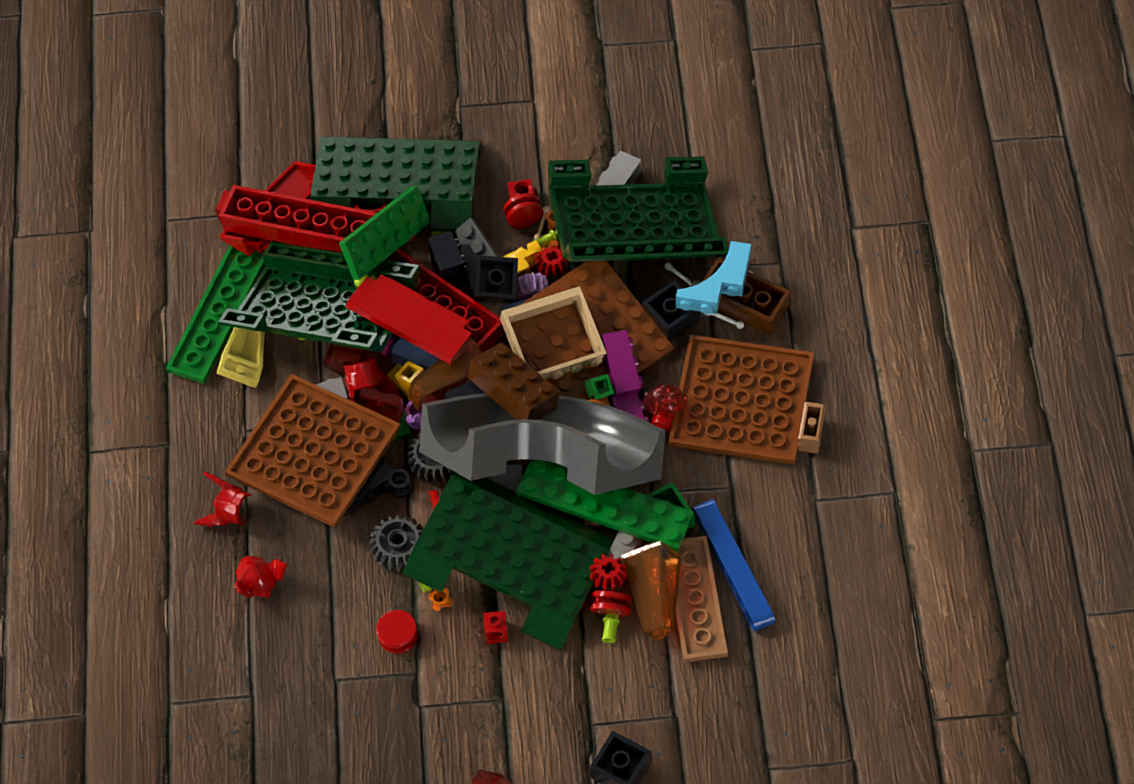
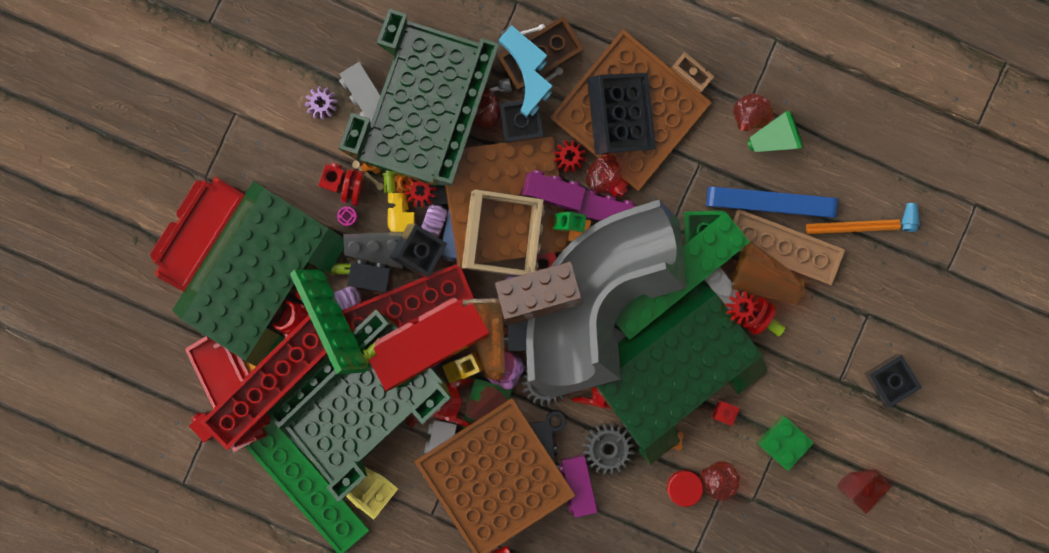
camera: 65 degrees left, 30 degrees up
(347, 536) = (578, 479): none -> magenta brick
(396, 118) = (199, 224): none -> red slope
(417, 251) = (348, 297): none -> lavender gear
(423, 659) = (720, 480): none -> clear red hair
(493, 222) = (351, 216): none -> dark pink wheel
(496, 697) = (785, 442): none -> green brick
(586, 150) = (325, 97): none -> lavender gear
(663, 274) = (488, 110): none -> clear red hair
(664, 369) = (575, 159): none -> red gear
(732, 386) = (621, 113): none -> black slope
(756, 653) = (858, 226): none -> orange axle
(798, 700) = (911, 218): none -> dark azure cone
(804, 533) = (777, 135): none -> slope
(809, 500) = (752, 112): none -> clear red hair

